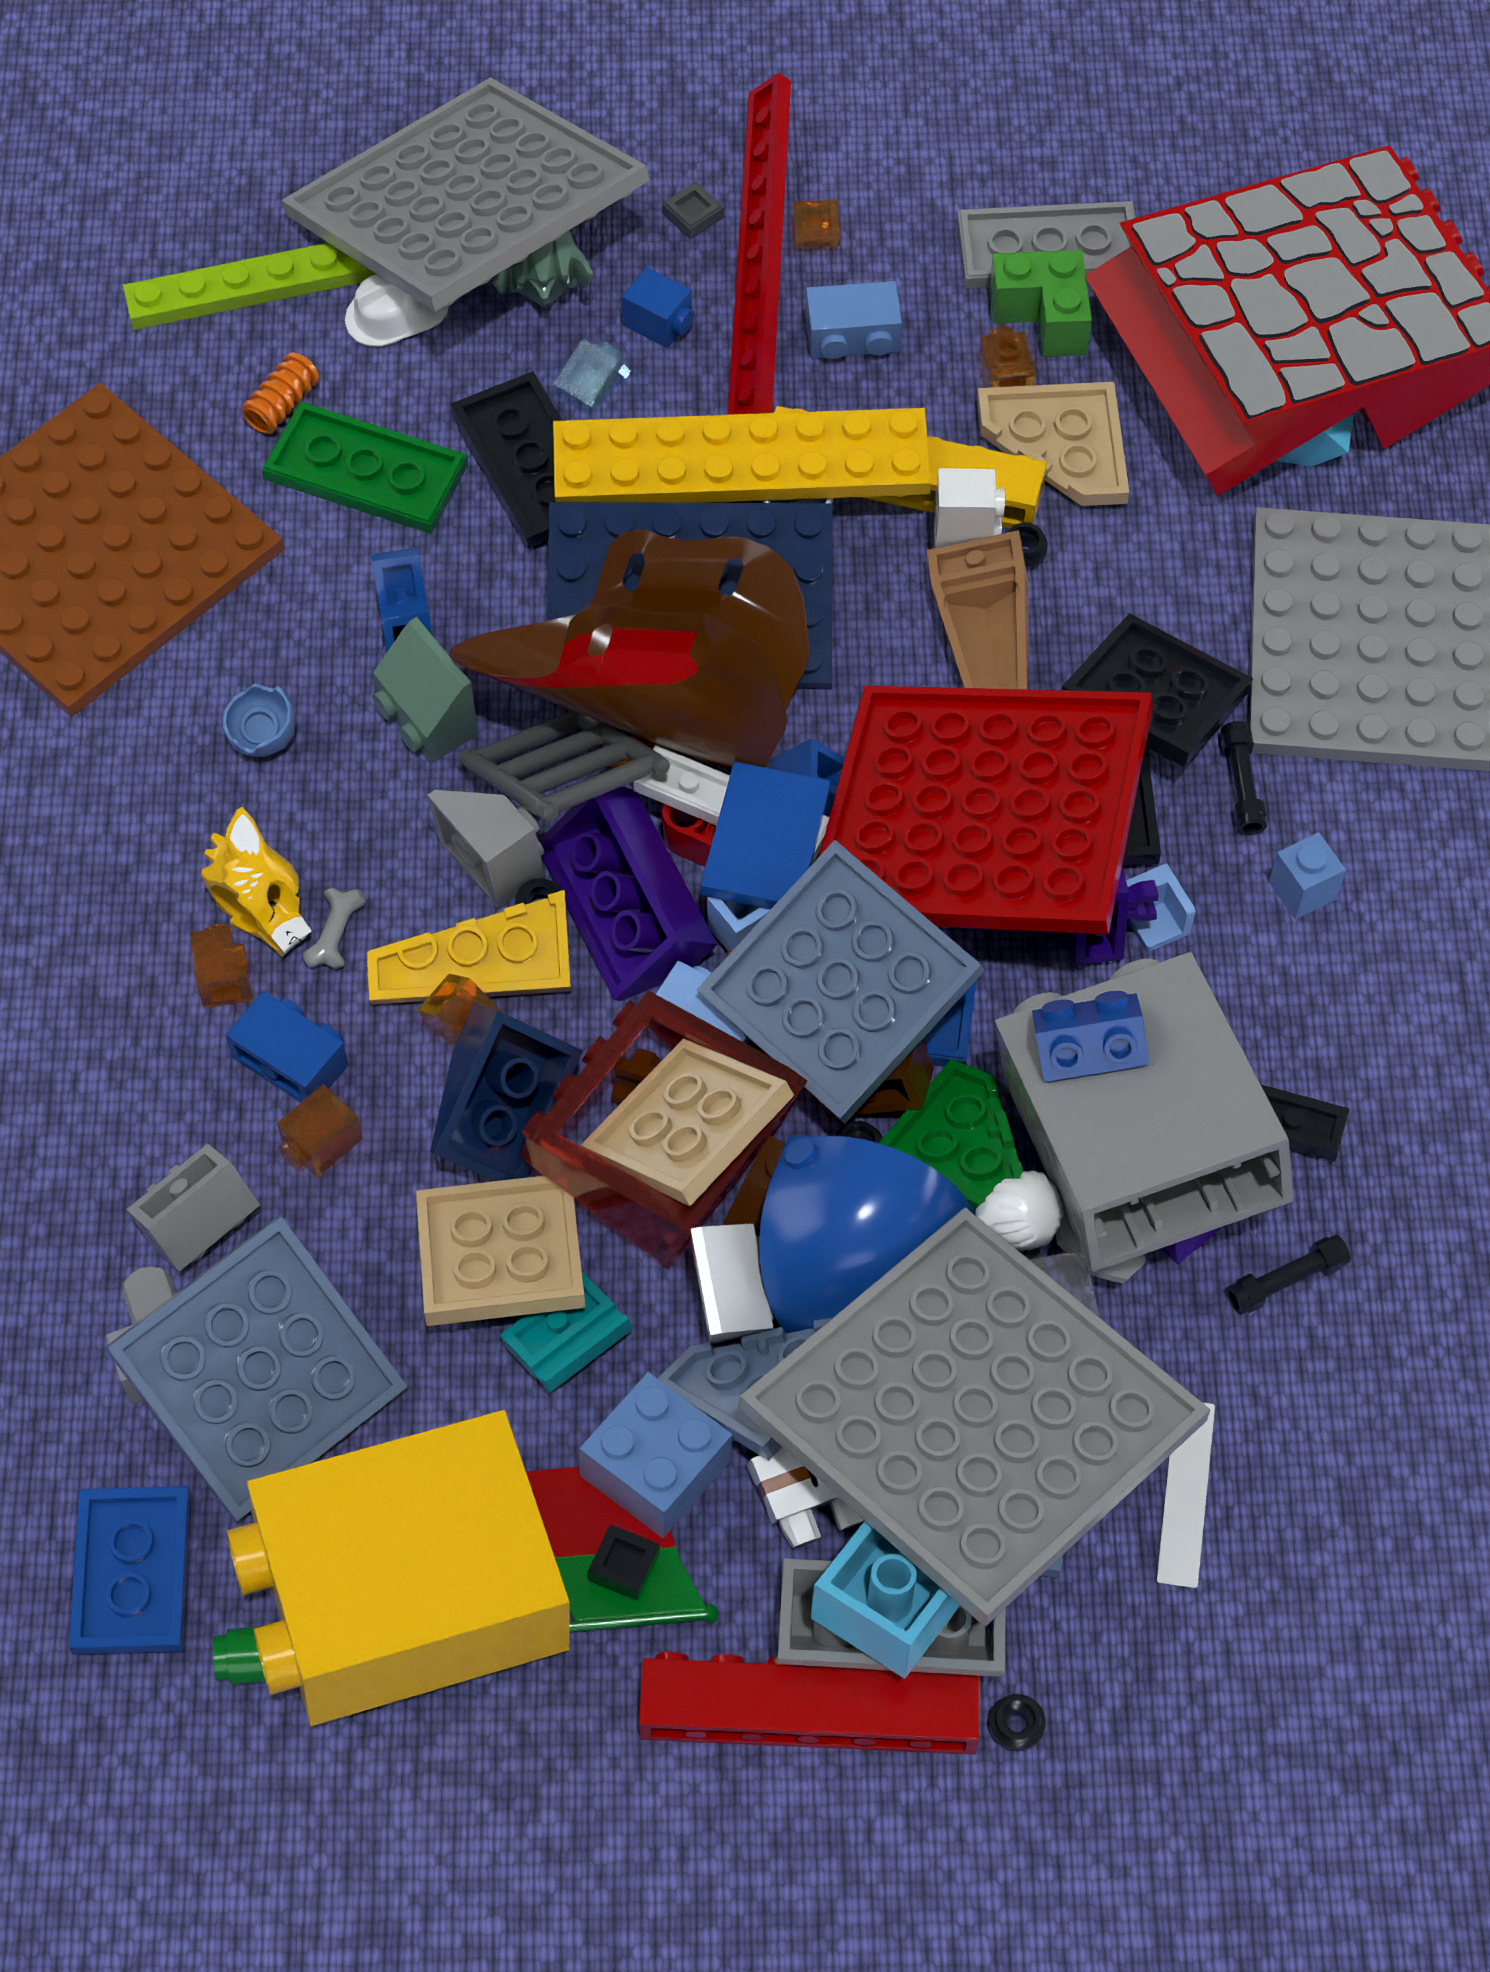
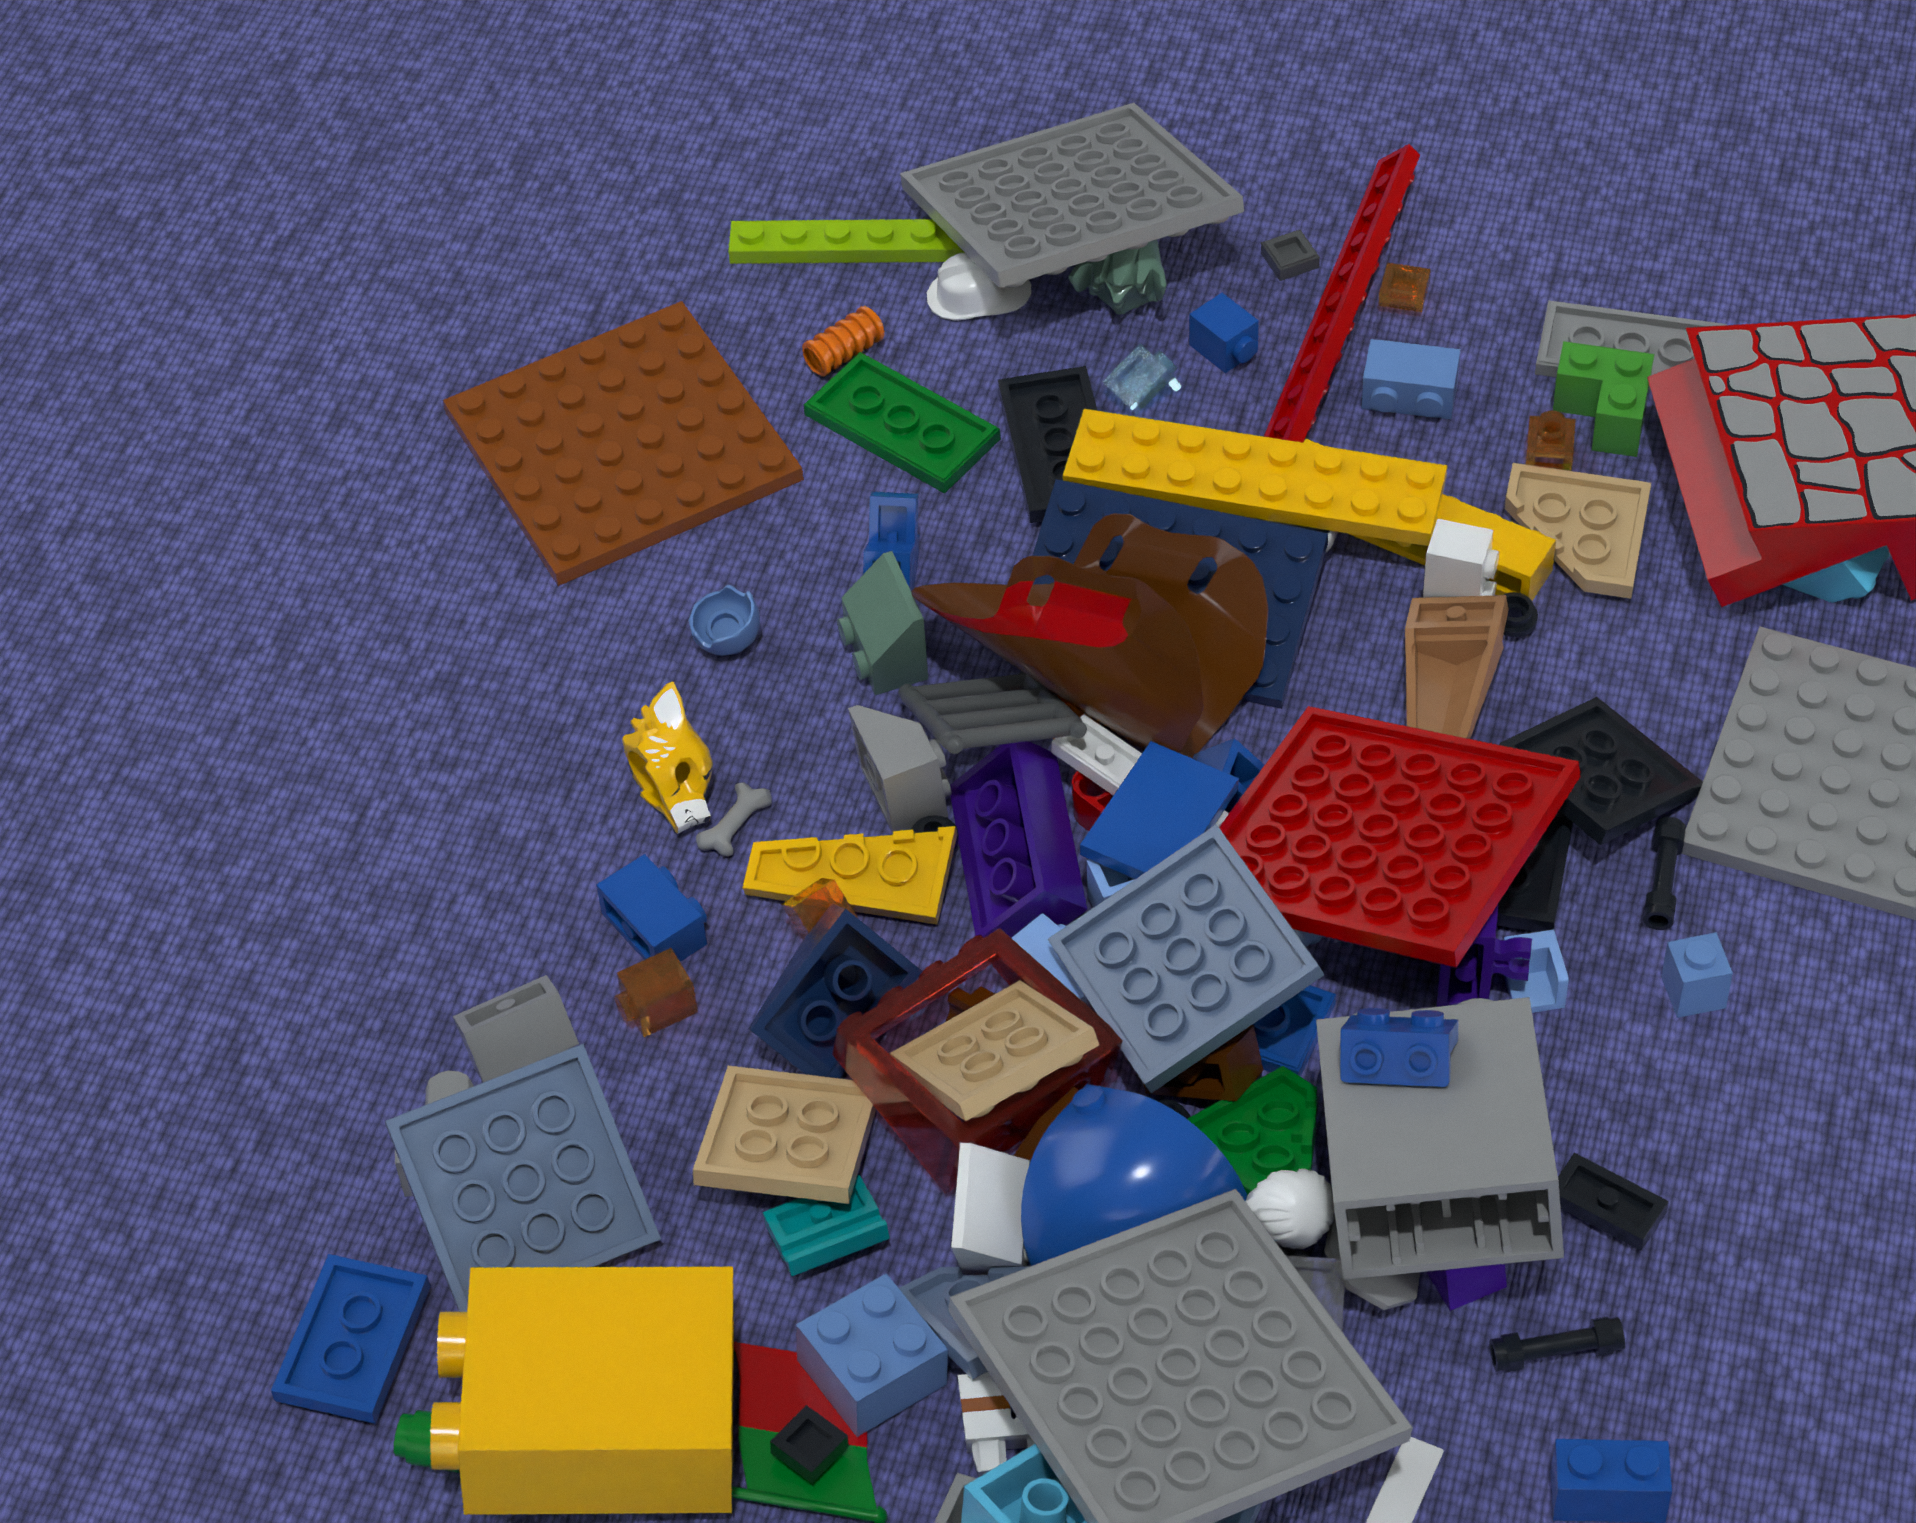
camera: 20 degrees right, 10 degrees down
(220, 967) = (614, 827): clear orange brick -> none
(1381, 1398) = (1610, 1480): none -> blue brick

